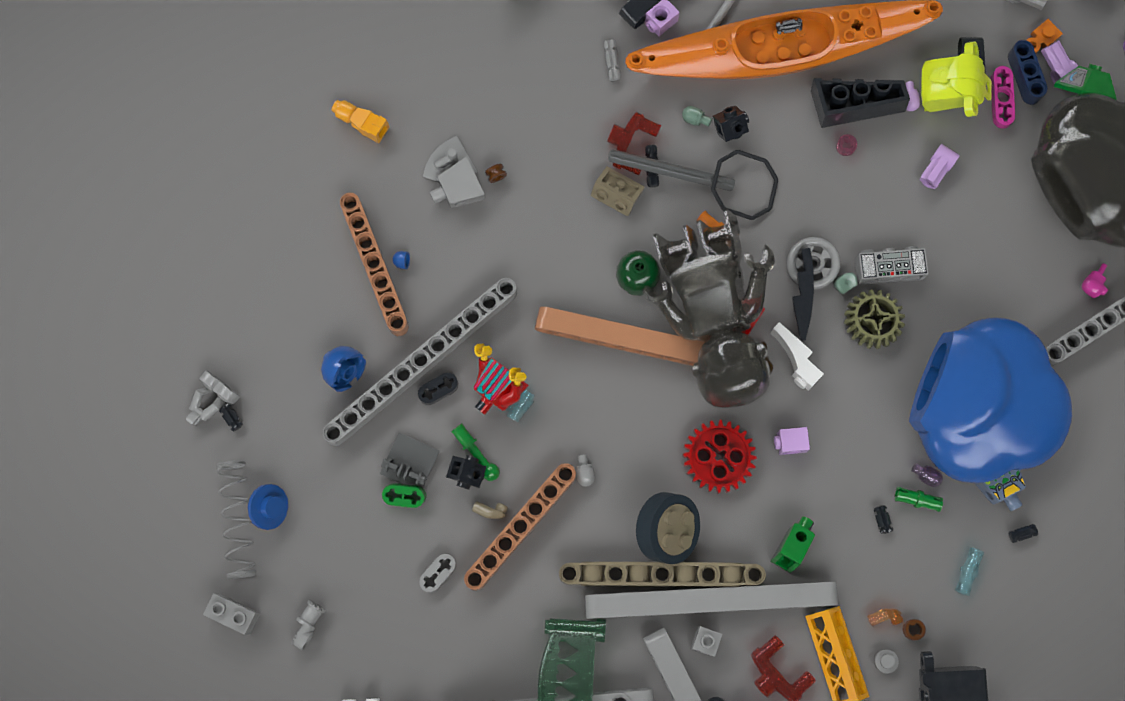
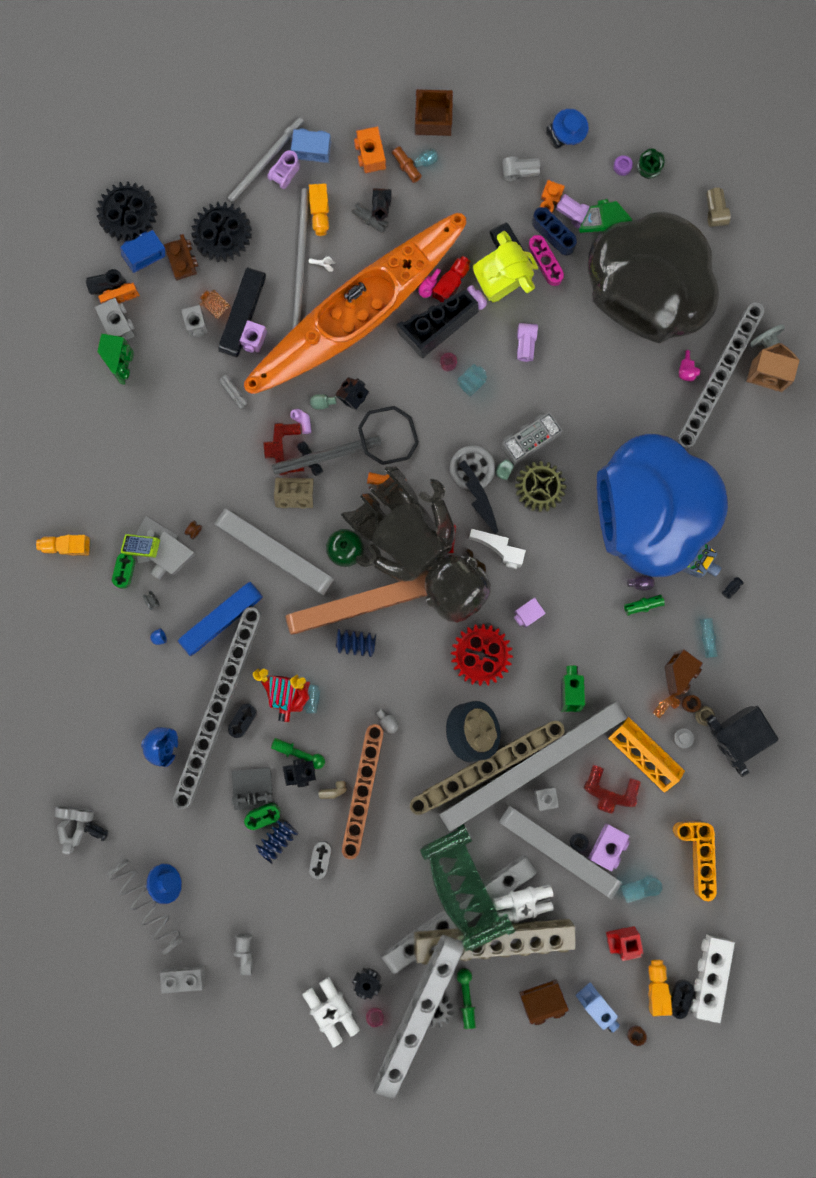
camera: 30 degrees left, 5 degrees up
(370, 254) = (131, 647): nougat beam -> none
(400, 173) = (119, 569): none -> green beam
(404, 527) = (276, 840): none -> dark blue piece
(414, 219) = (151, 601): none -> dark grey bush
(435, 159) = (140, 546): none -> tile
(472, 274) = (220, 619): none -> blue beam
(564, 238) = (274, 551): none -> light grey beam
(596, 373) = (355, 643): none -> dark blue piece
(667, 124) = (302, 418): none -> lavender arm
(861, 175) = (472, 379): none -> clear light blue brick
(866, 58) = (426, 287): none -> dark pink piece
(883, 519) = (626, 634): black piece -> none
(893, 66) = (451, 280): none -> red piece
(920, 587) = (680, 671): none -> reddish brown slope
(920, 646) = (703, 713): none -> dark tan plate

